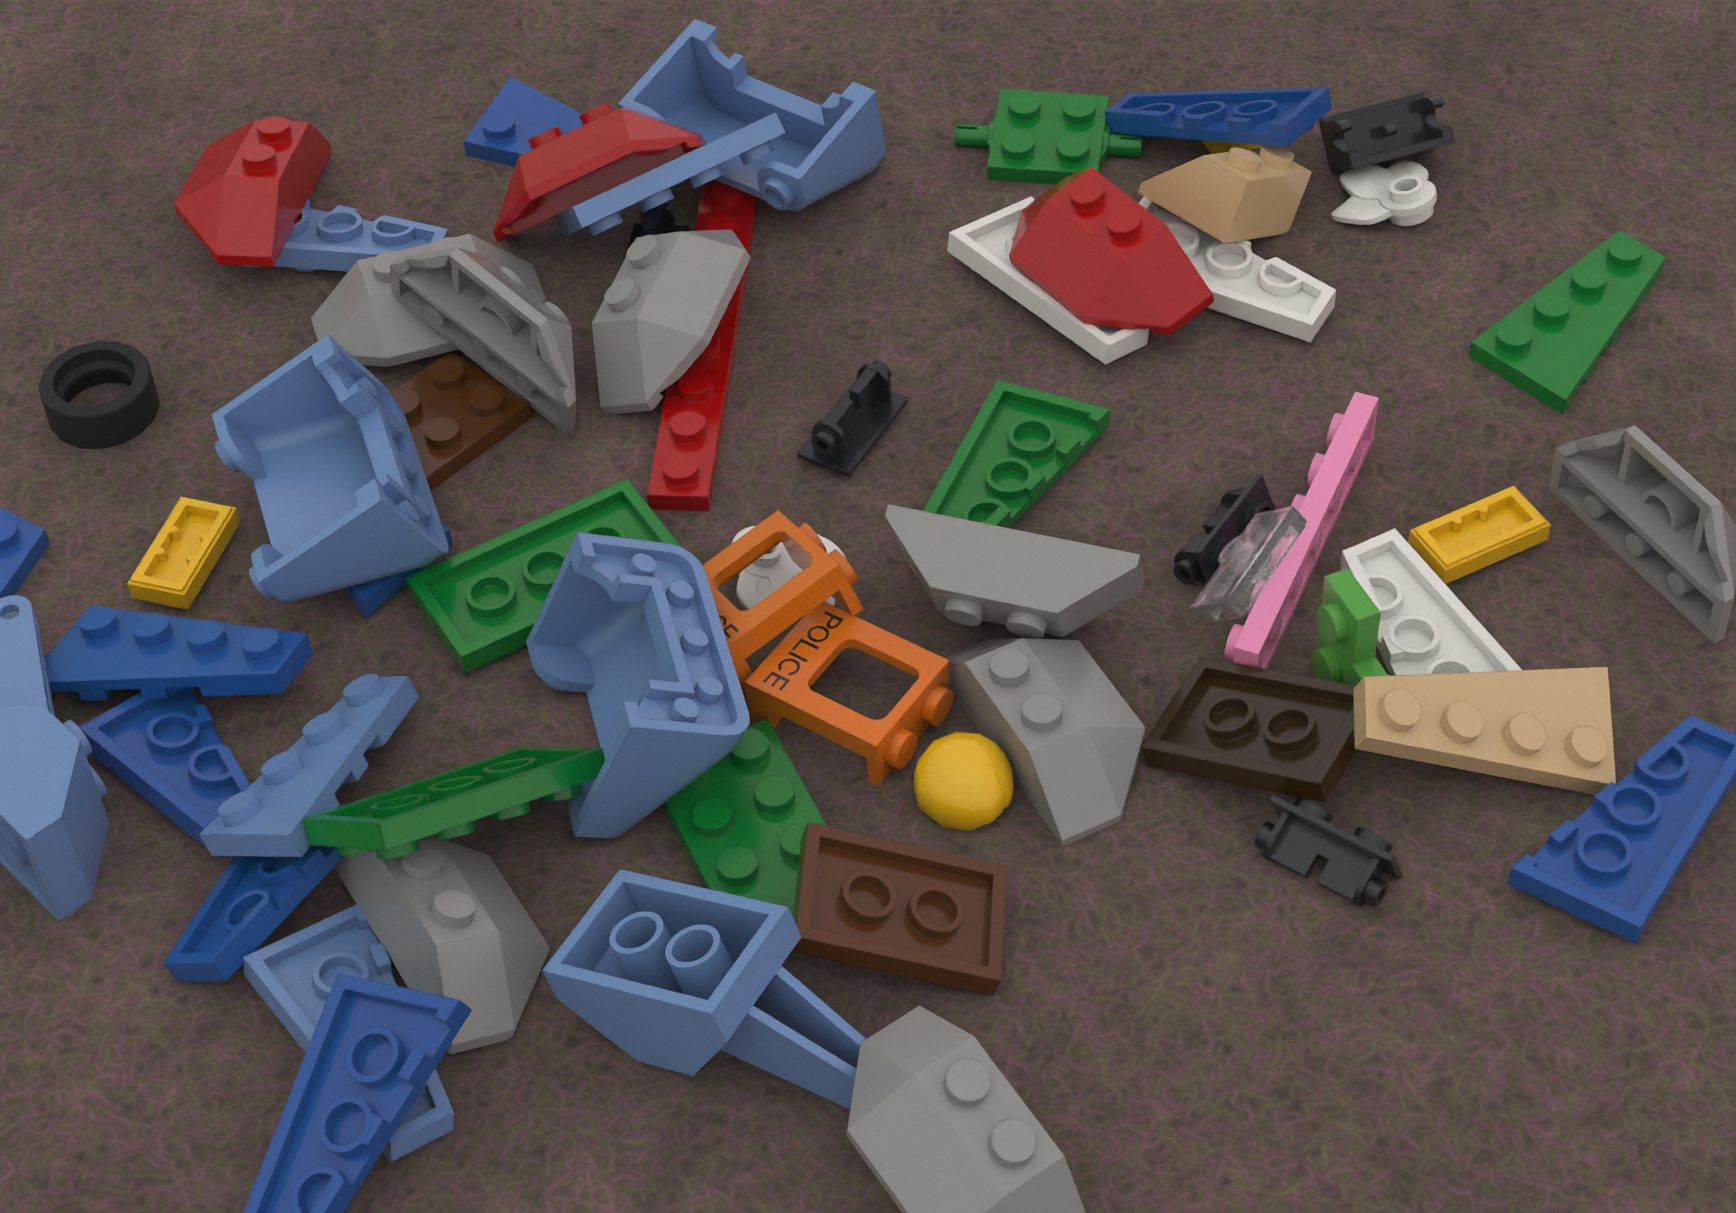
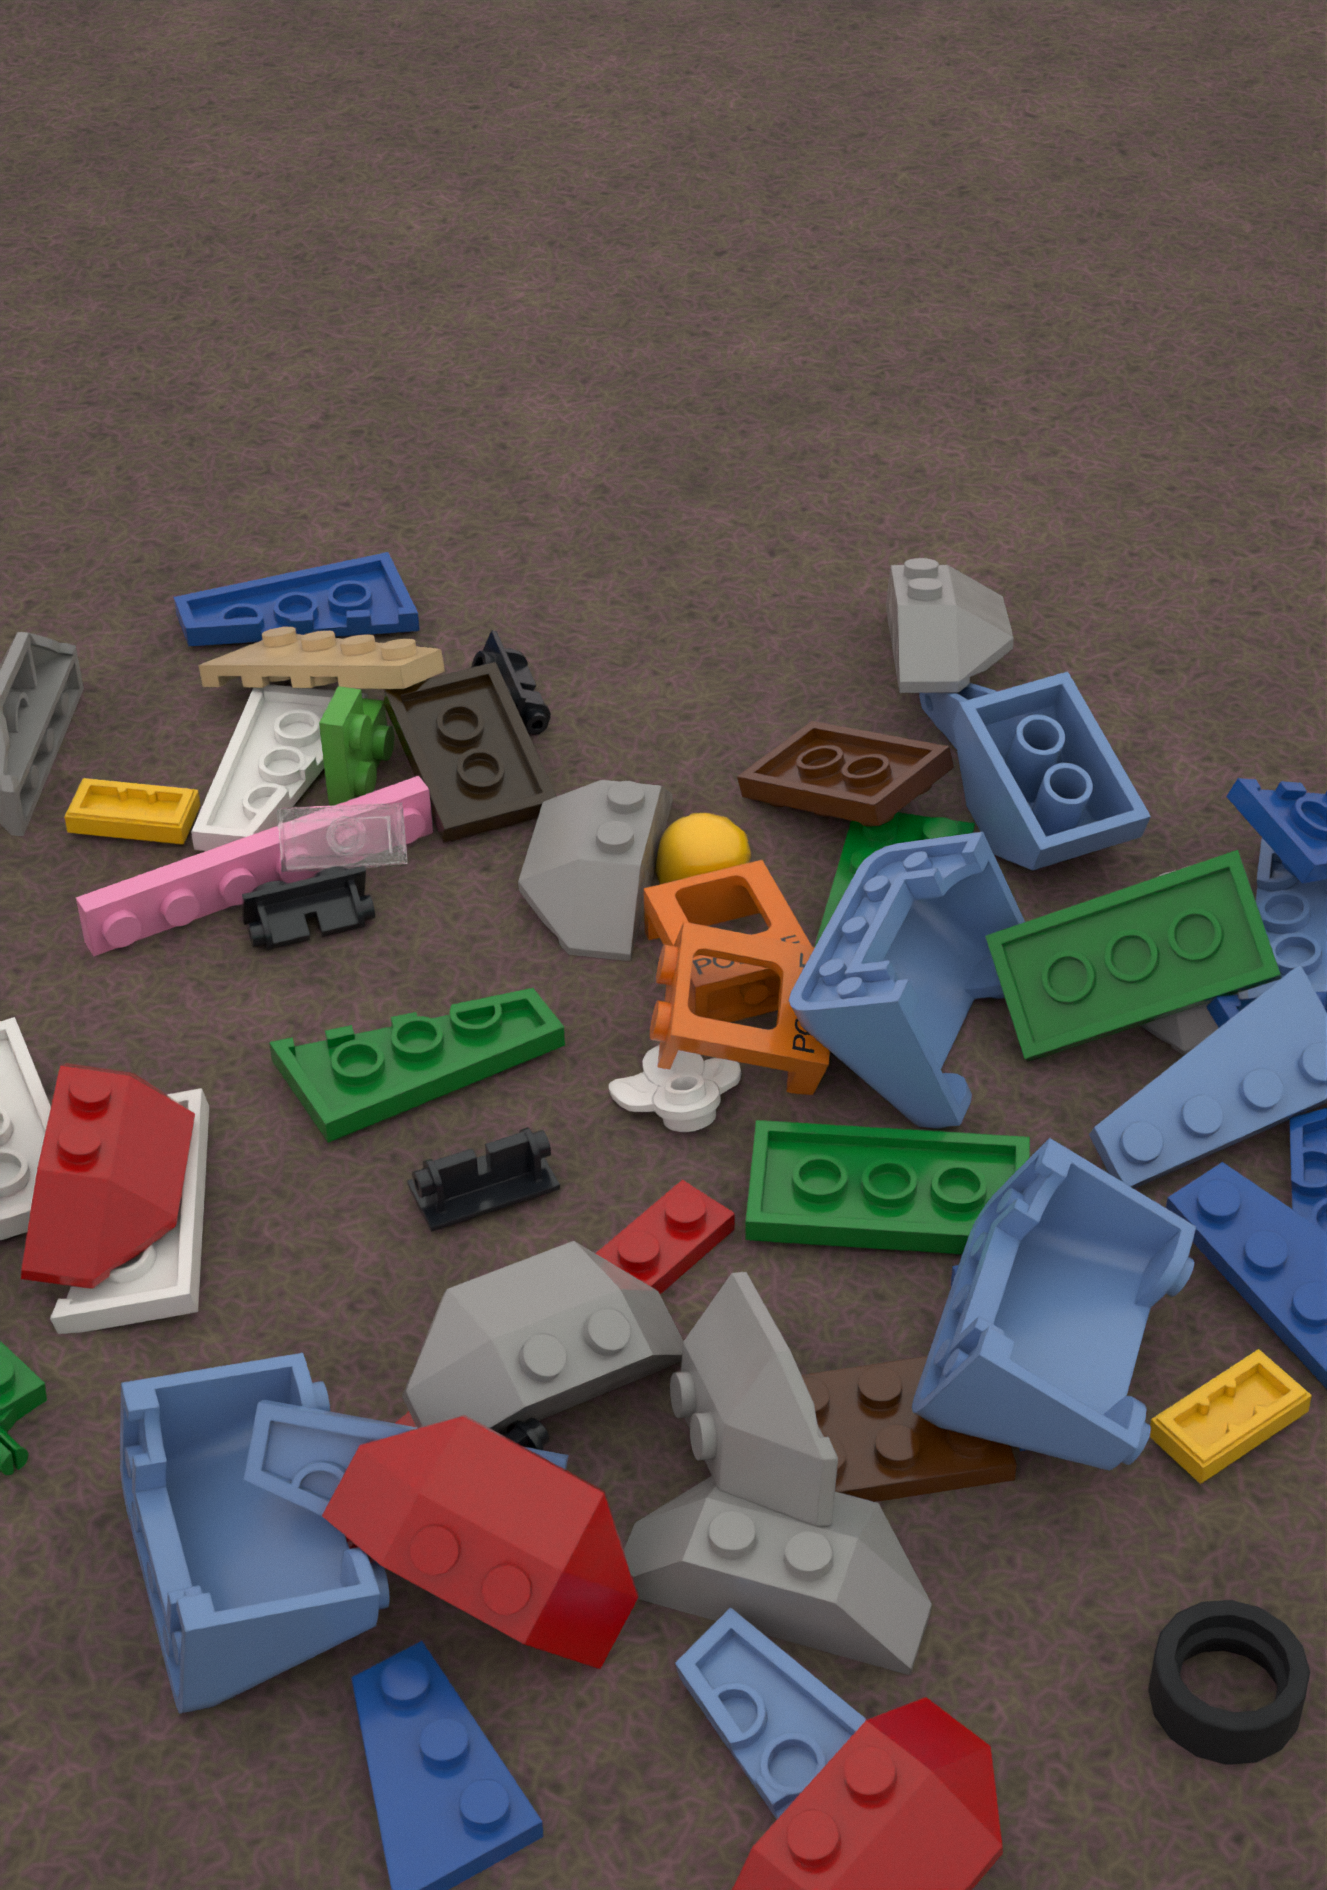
camera: 145 degrees left, 5 degrees down
(1011, 574) = (528, 899): light grey wedge -> none

